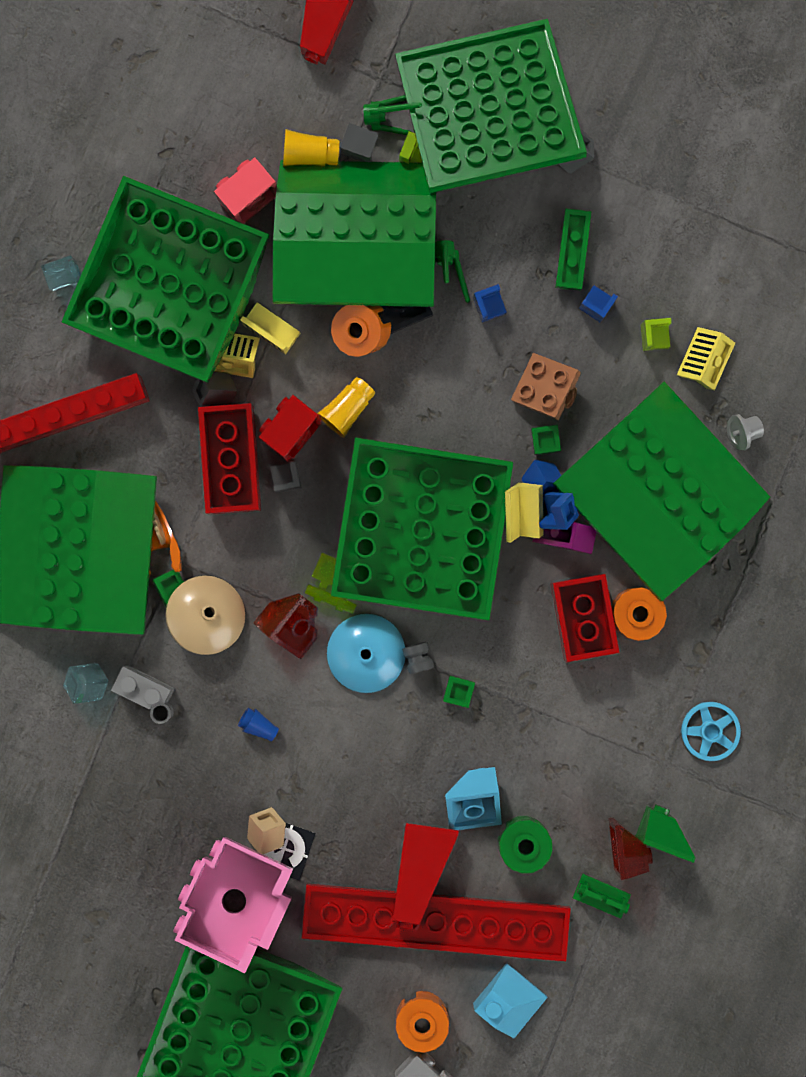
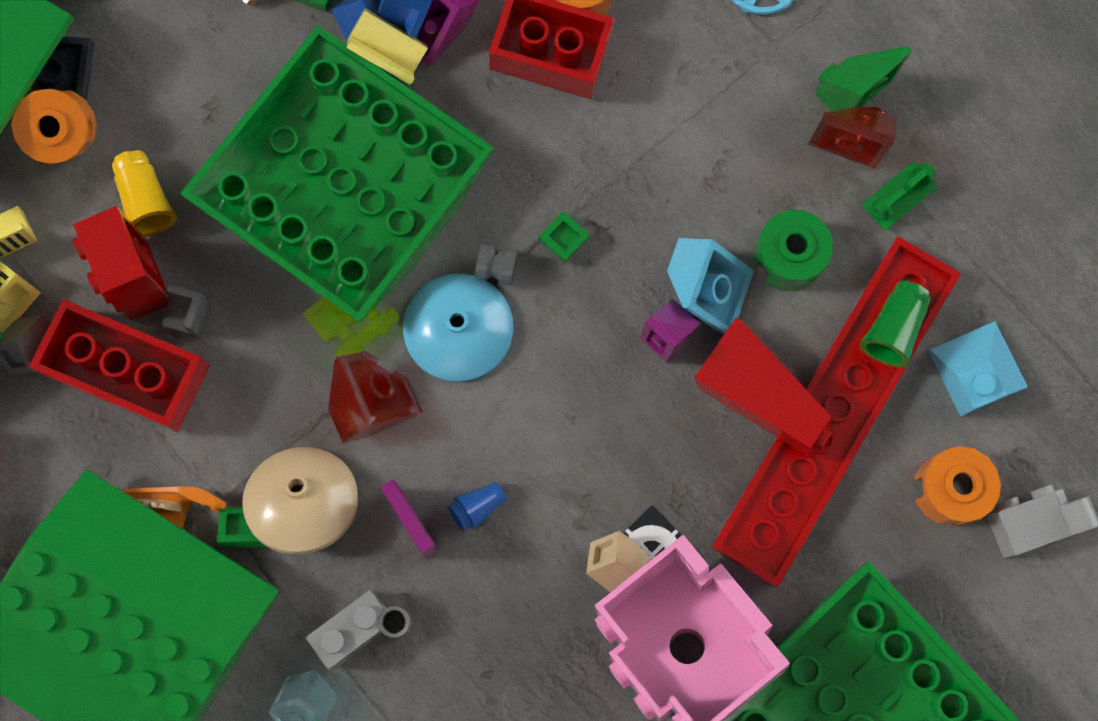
camera: 70 degrees left, 10 degrees down
(225, 691) = (409, 518): none -> magenta tile
(430, 791) = (669, 330): none -> magenta slope
(506, 937) = (897, 325): none -> green plant

